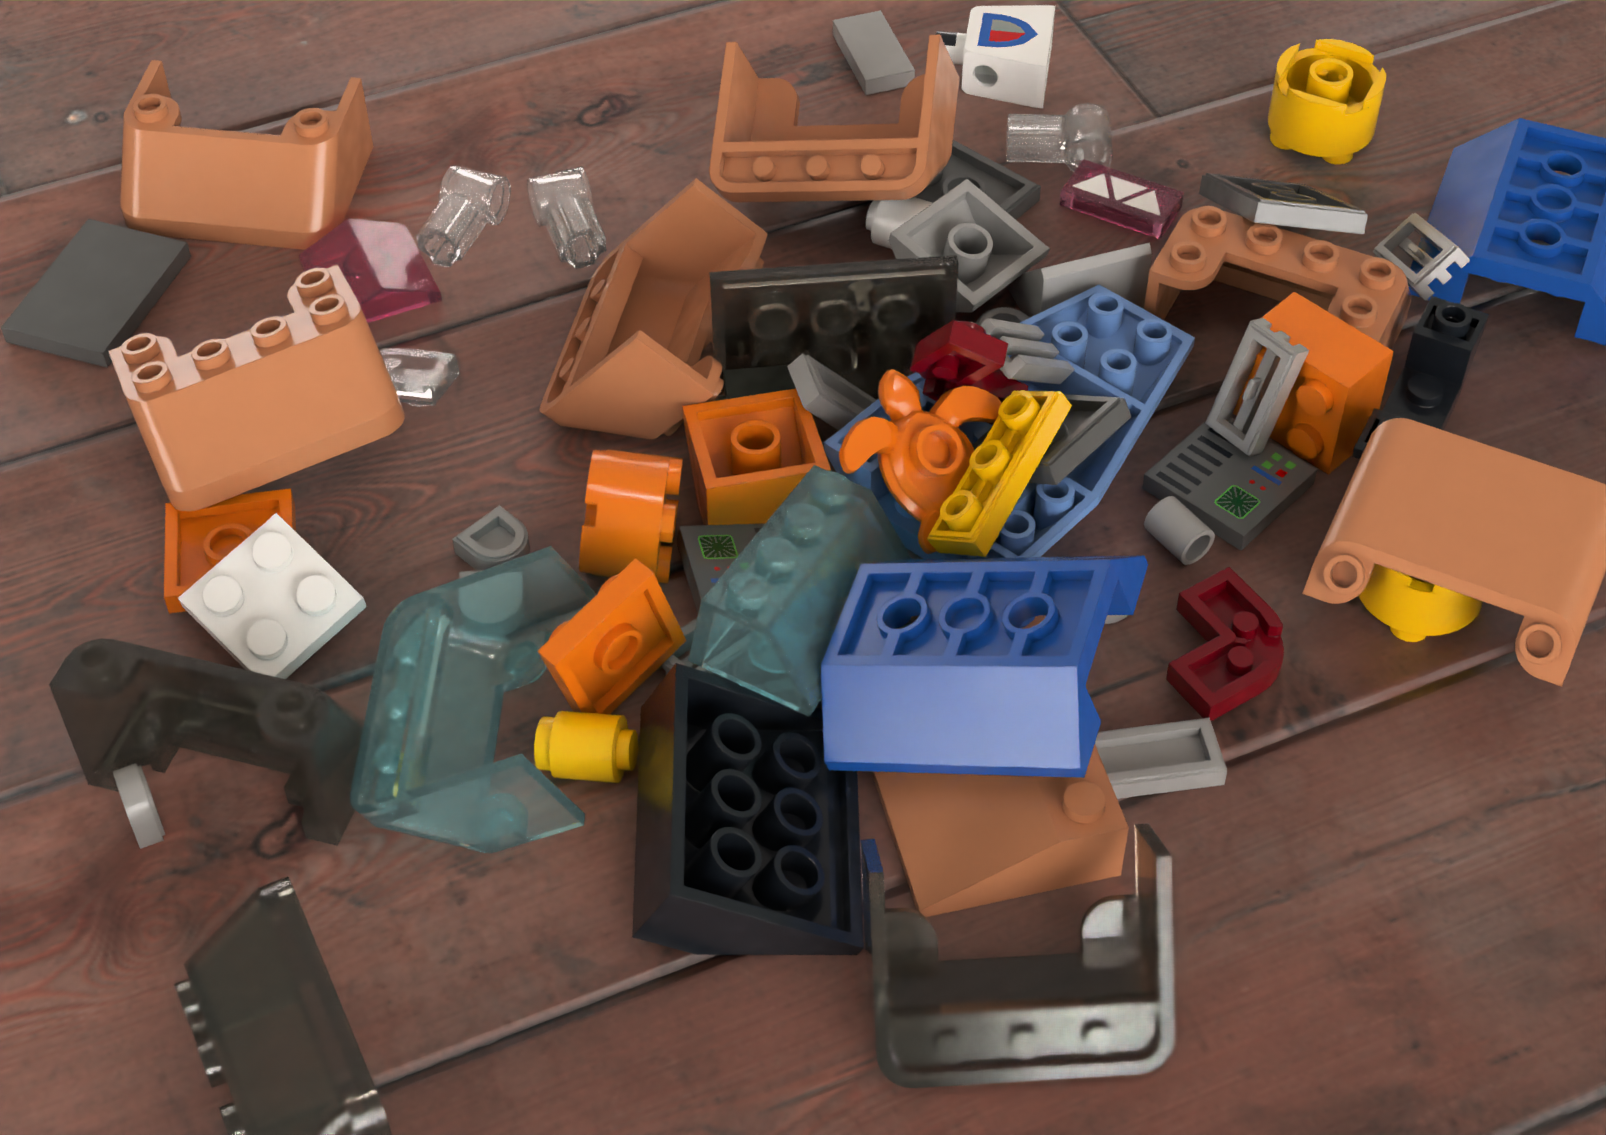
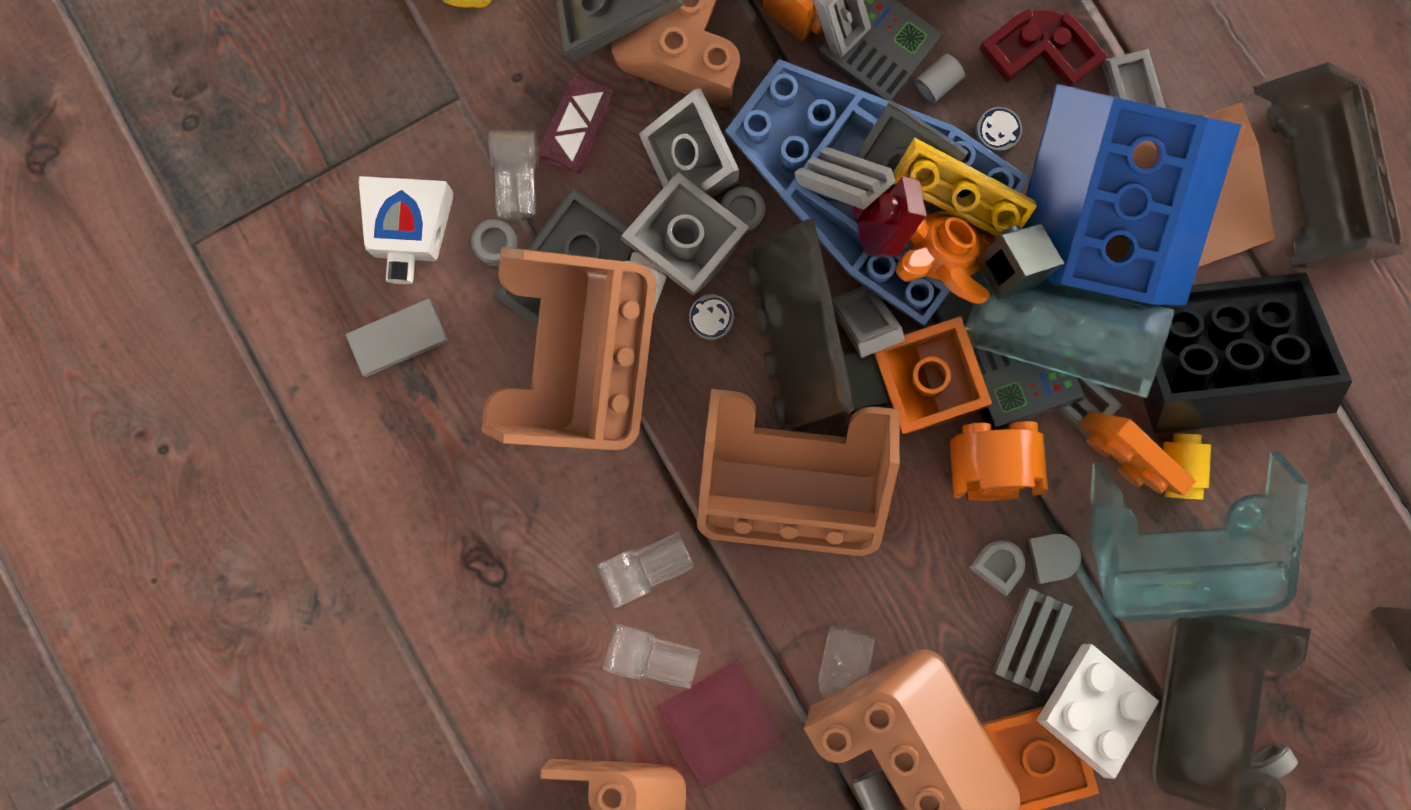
camera: 95 degrees left, 35 degrees up
(394, 558) = (1049, 646): none -> light grey tile
(896, 507) = (1019, 260): none -> pearl dark grey brick
(979, 128) = (489, 239): none -> light grey tile

